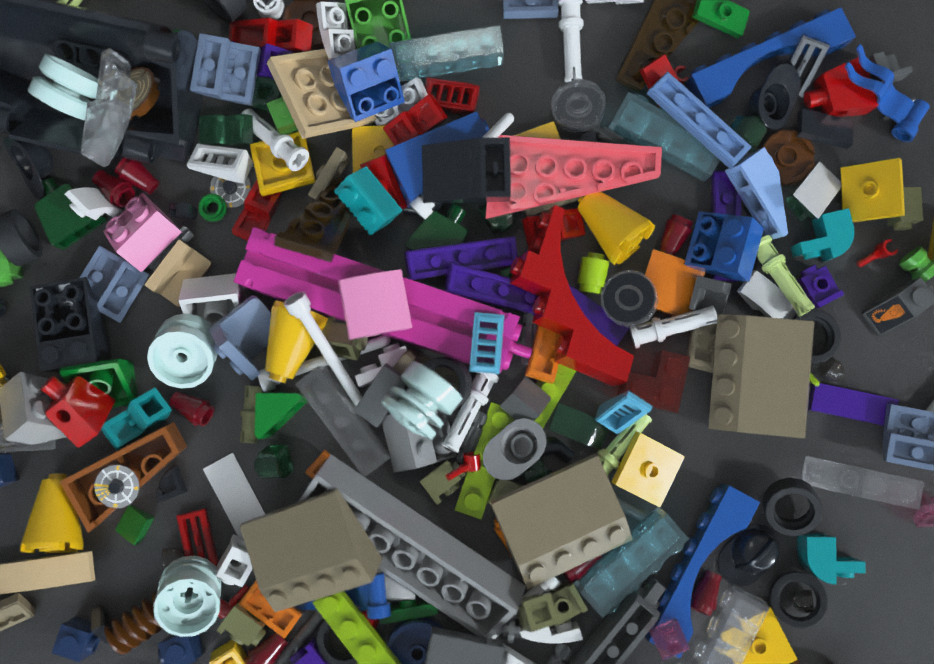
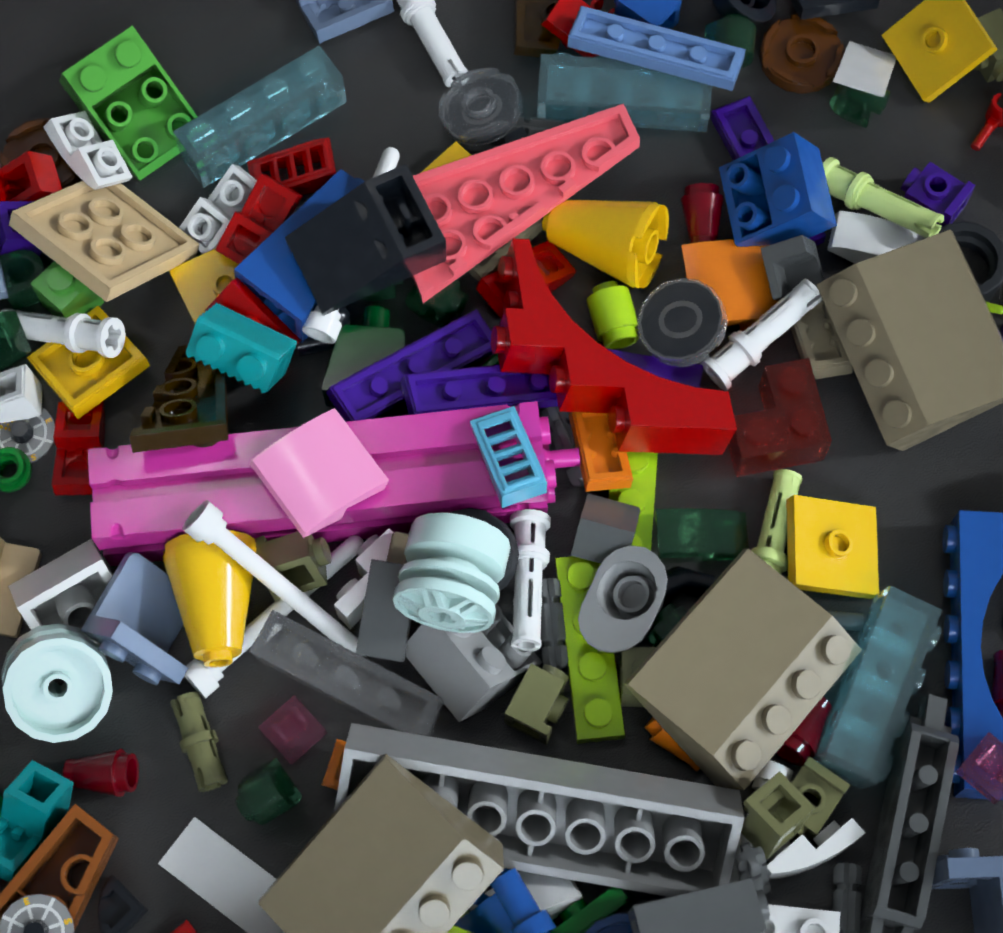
camera: 20 degrees left, 15 degrees down
(274, 410) = (239, 703): green slope -> none
(304, 430) = (292, 730): none -> clear pink tile
(329, 172) = (164, 343): dark tan plate -> none
(367, 80) = (164, 191): blue slope -> none
(471, 464) = (567, 653): red hand -> none
(622, 411) = (752, 502): medium azure slope -> none
(760, 189) = (786, 102): light blue slope -> none
(833, 237) = (918, 126): teal brick -> none

